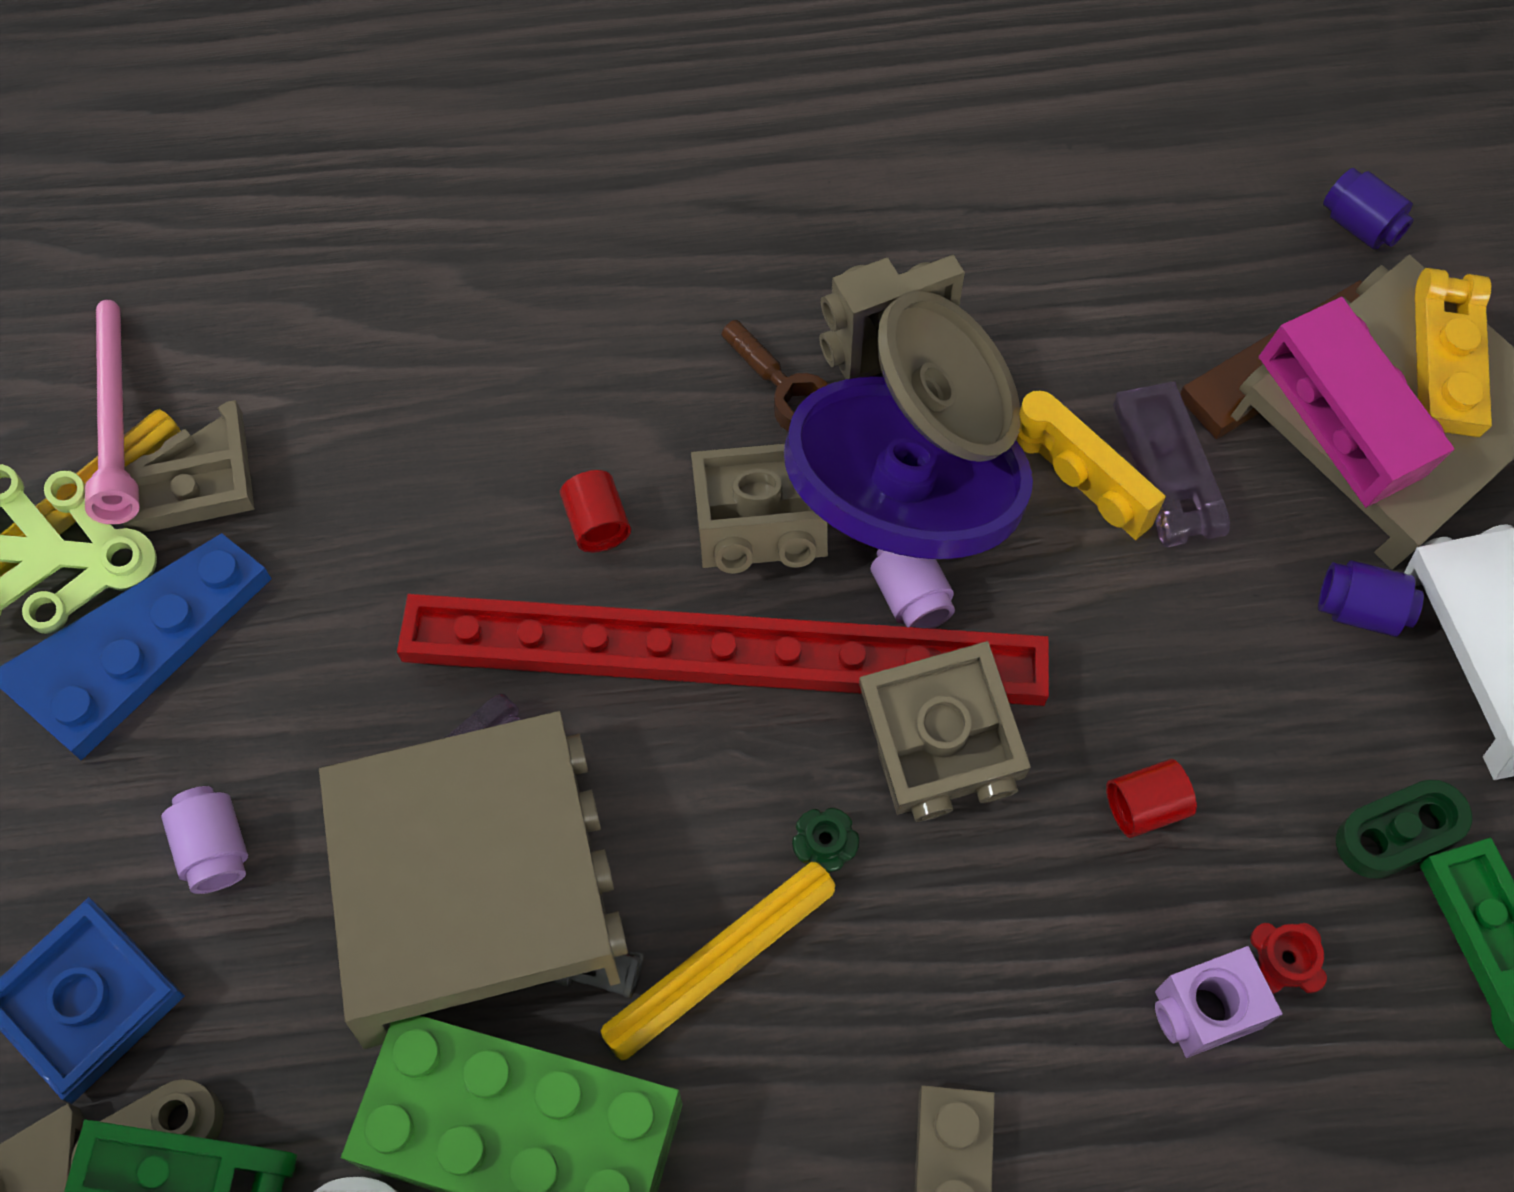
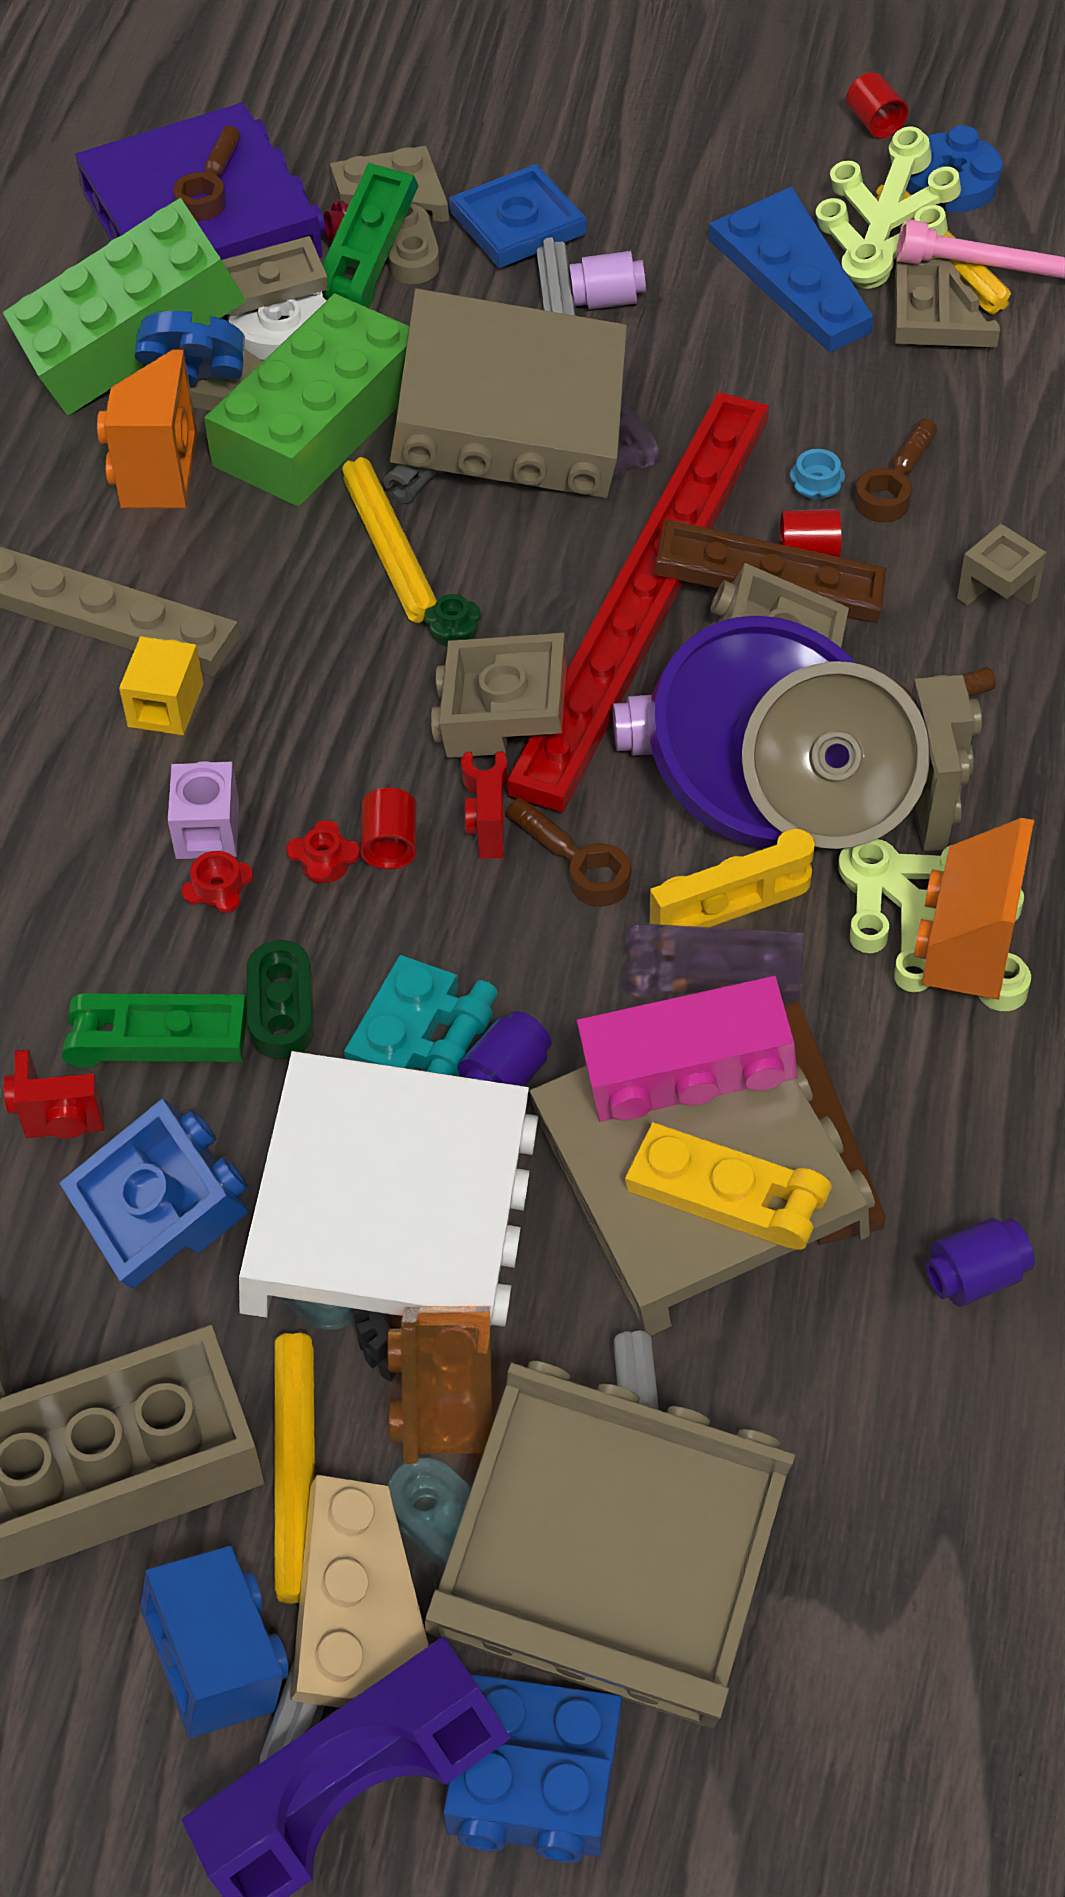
camera: 110 degrees right, 10 degrees down
(232, 899) = (555, 277): none -> light grey axle
(450, 461) = (893, 479): none -> reddish brown piece
(491, 517) = (817, 474): none -> dark azure plate
(607, 326) = (1003, 564): none -> dark tan panel
(665, 537) = (714, 556): none -> reddish brown tile
(1058, 1132) = (161, 685): none -> yellow brick
(1076, 258) = (890, 877): none -> yellowish green plant
(1077, 230) = (974, 911): none -> orange slope
(1084, 636) = (588, 857): none -> reddish brown piece
(1087, 705) = (486, 812): none -> red plate
(1189, 872) = (328, 864): none -> red plate
(1351, 711) = (408, 1013): none -> teal plate

